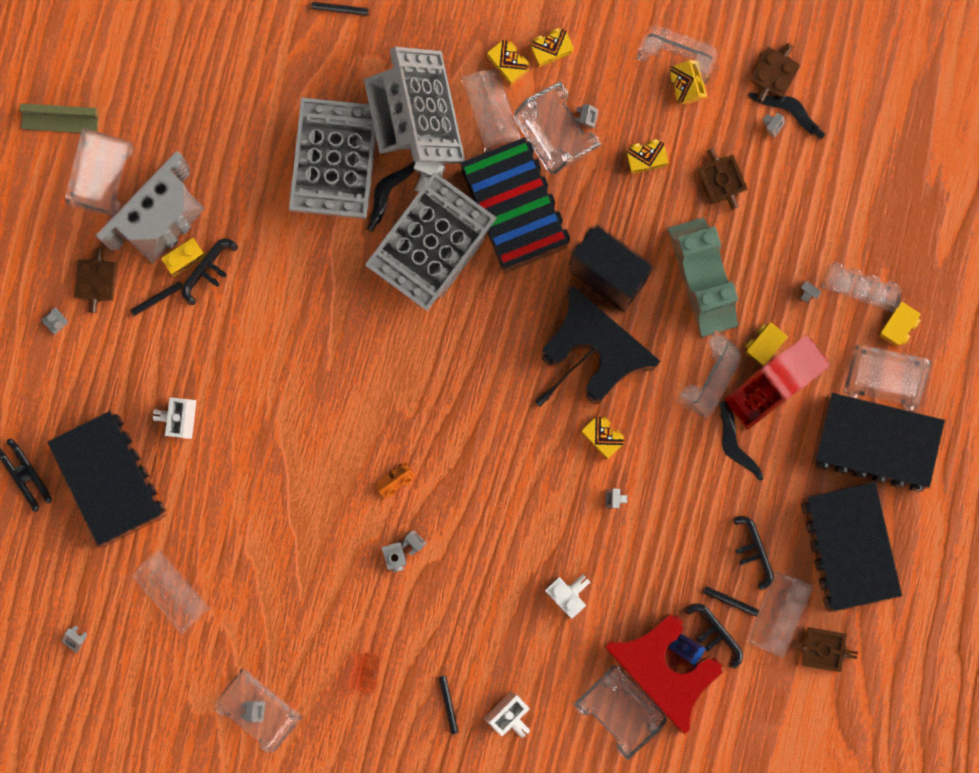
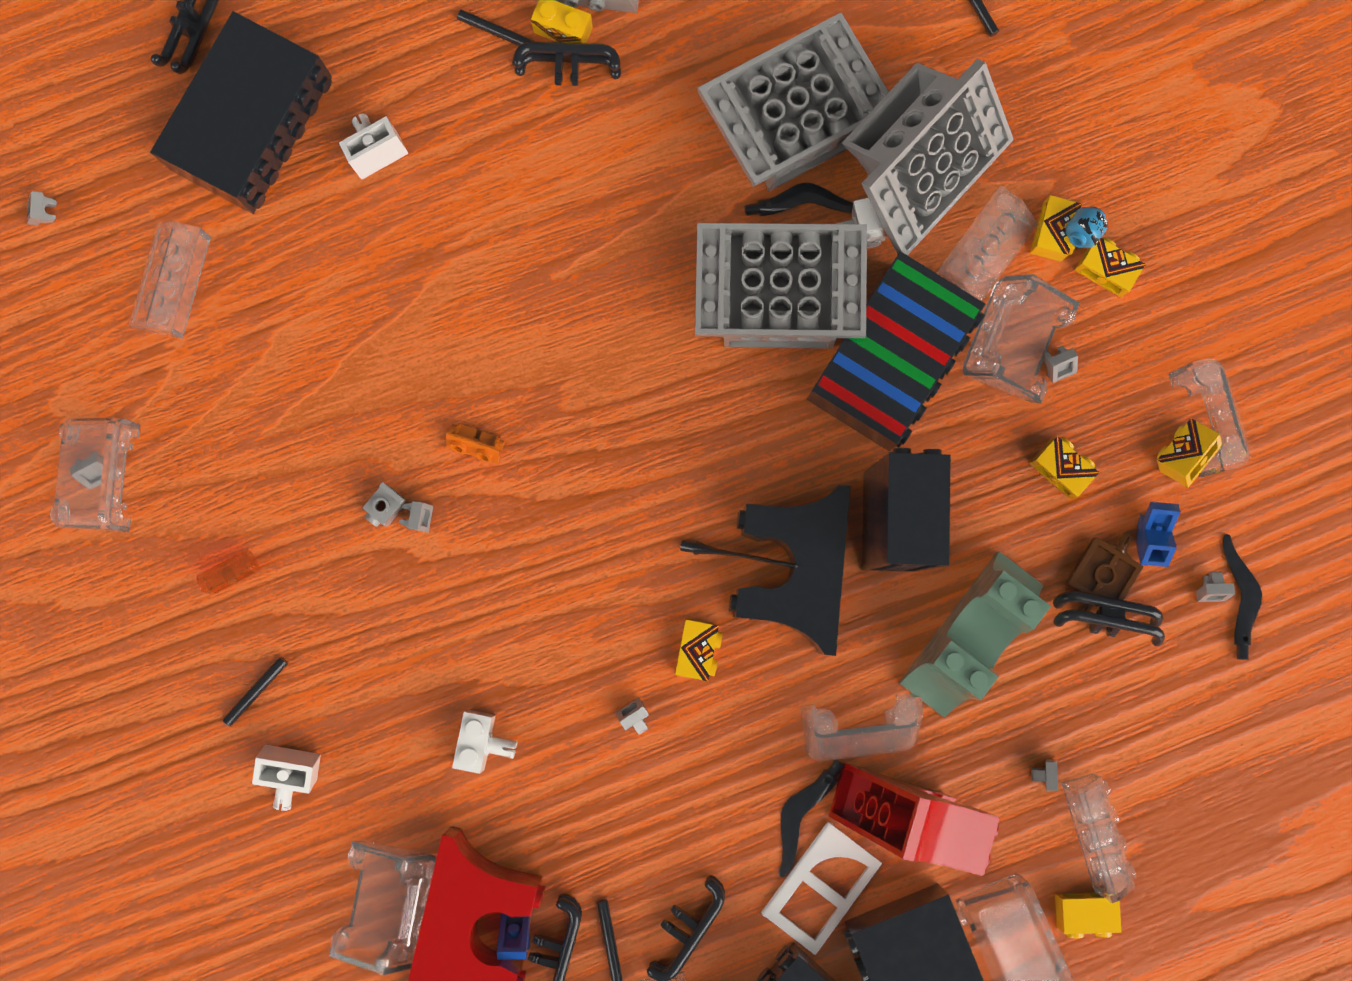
camera: 55 degrees right, 0 degrees up
(520, 47) = (1086, 227): none -> dark azure head
(720, 134) = (1155, 536): none -> blue brick
(746, 193) = (1110, 614): none -> black piece
(762, 441) = (826, 845): none -> white window
(766, 344) = (946, 767): yellow brick -> none
(774, 72) = (1275, 547): reddish brown plate -> none

